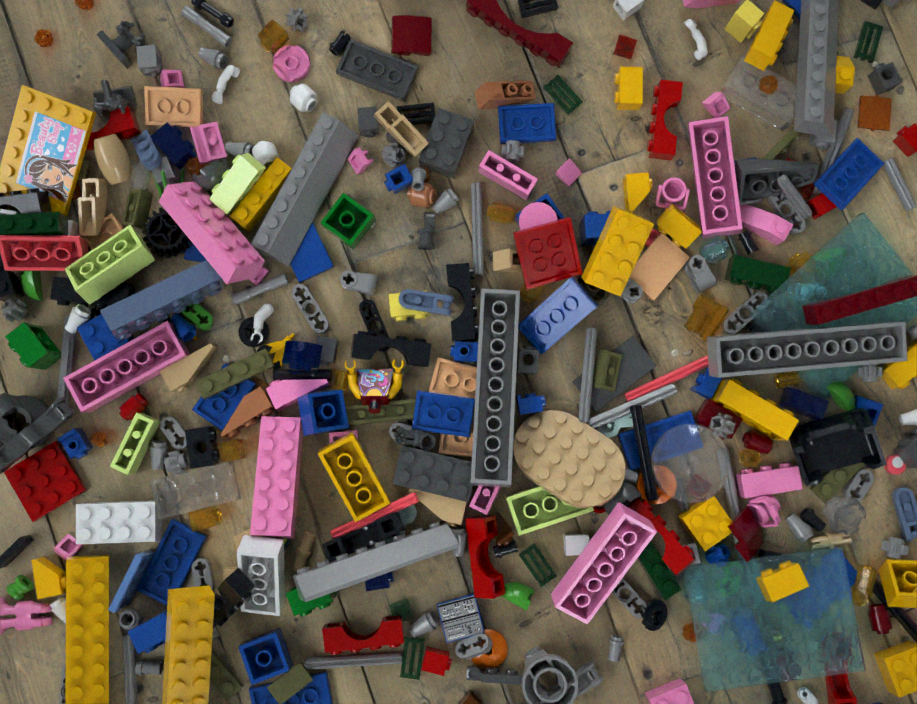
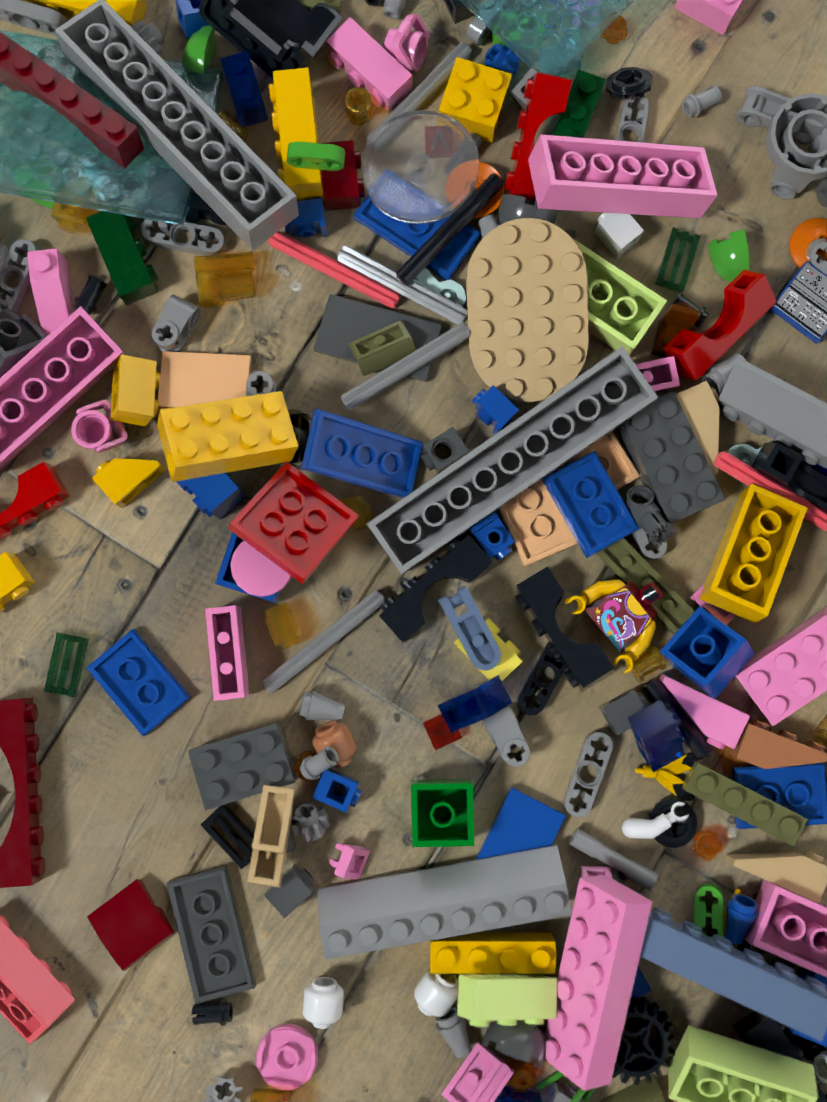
camera: 125 degrees left, 0 degrees up
(233, 344) = (699, 844): none -> clear orange plate
(388, 254) = (439, 732): none -> clear red tile
(388, 276) = (475, 704): none -> clear blue brick
(425, 233) = (382, 699): dark grey connector -> none
(496, 94) = (121, 740): nougat slope -> none
(506, 261) = (340, 571): tan slope -> none
(512, 151) = (190, 671): light grey gear -> none
(568, 172) = (165, 580): bright pink slope -> none
(714, 249) = (130, 327): clear light blue head -> none
(722, 425) = (353, 157): light grey gear -> none
(733, 405) = (315, 156): none -> bright green beam
(748, 532) = (451, 44): dark red slope -> none
(757, 441) = (331, 110): dark red brick -> none

